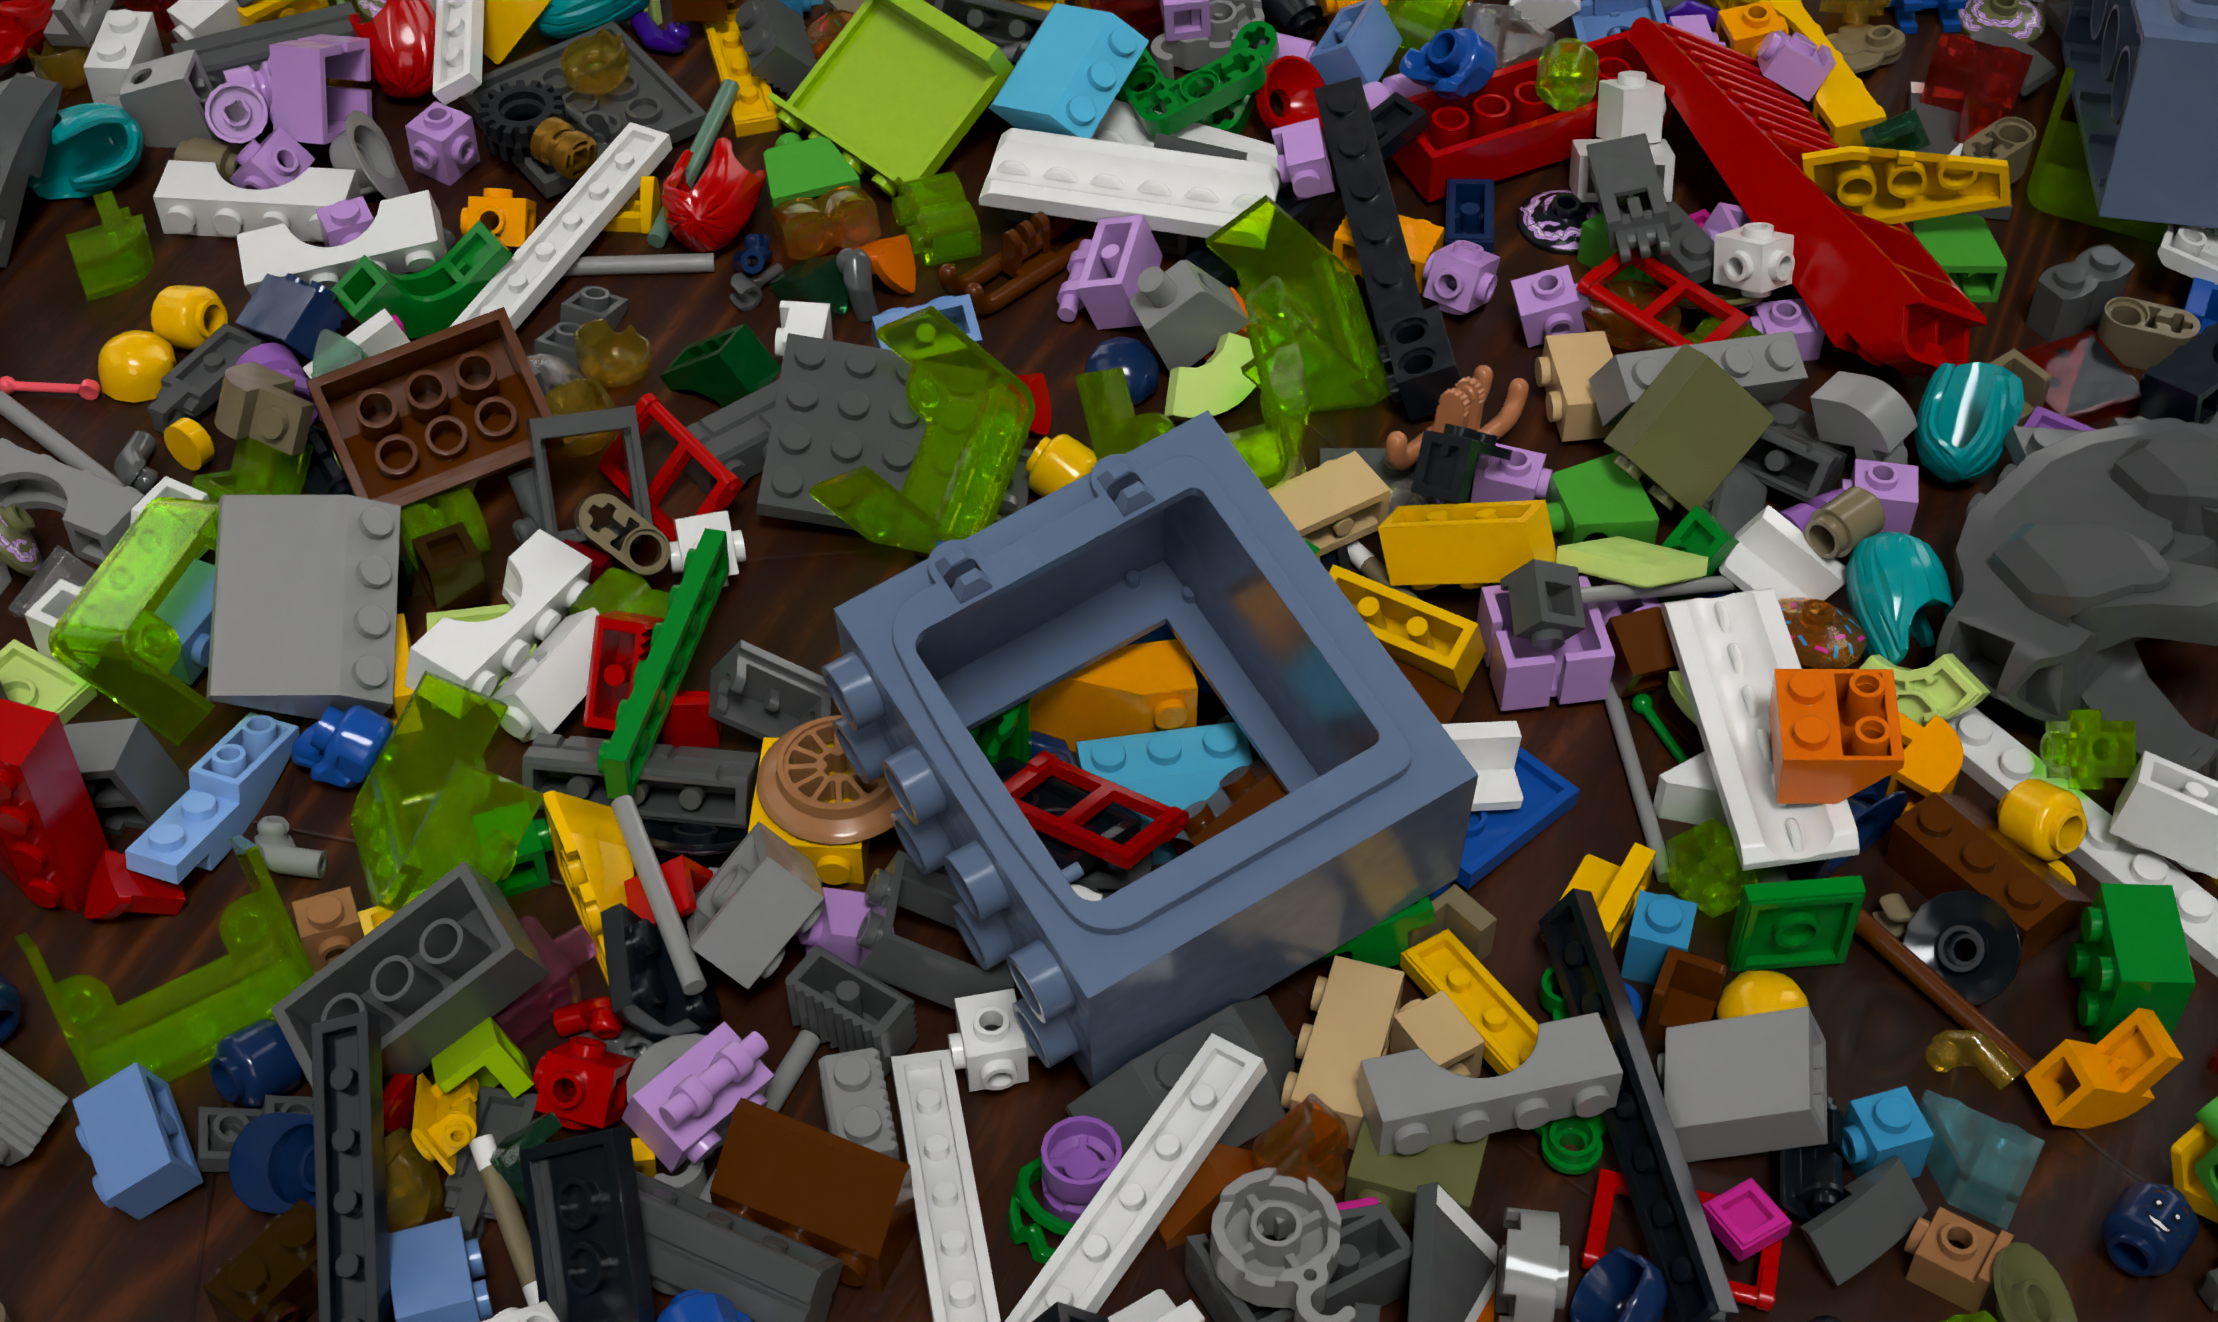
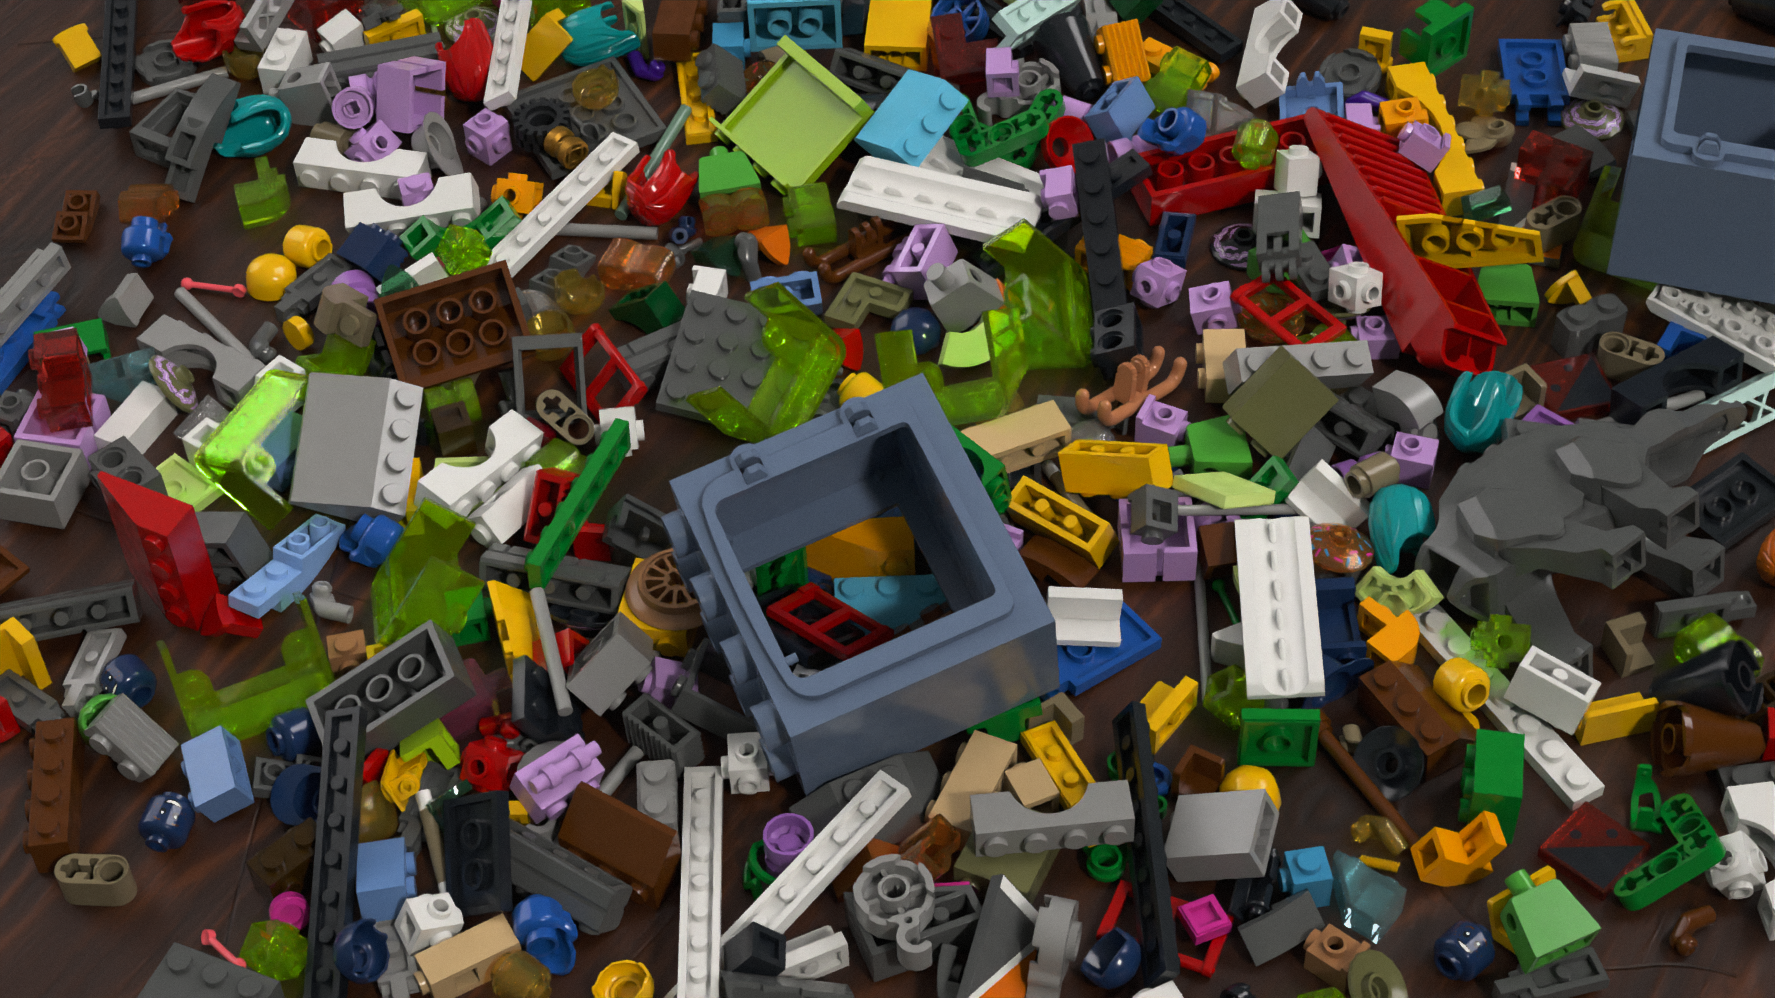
camera: 10 degrees right, 0 degrees up
(61, 1229) = (166, 821): none -> dark blue head
(430, 301) = (463, 249): none -> clear neon green brick
(686, 309) = (635, 265): none -> clear orange brick
(1042, 325) = (865, 295): none -> olive plate
(1449, 461) = (1112, 409): black bracket -> none
(1657, 924) = (1186, 729): dark azure brick -> none
(1832, 732) = (1316, 614): orange slope -> none
(1982, 1102) = (1376, 862): none -> yellow leg
(2040, 245) = (1568, 290): none -> yellow tile

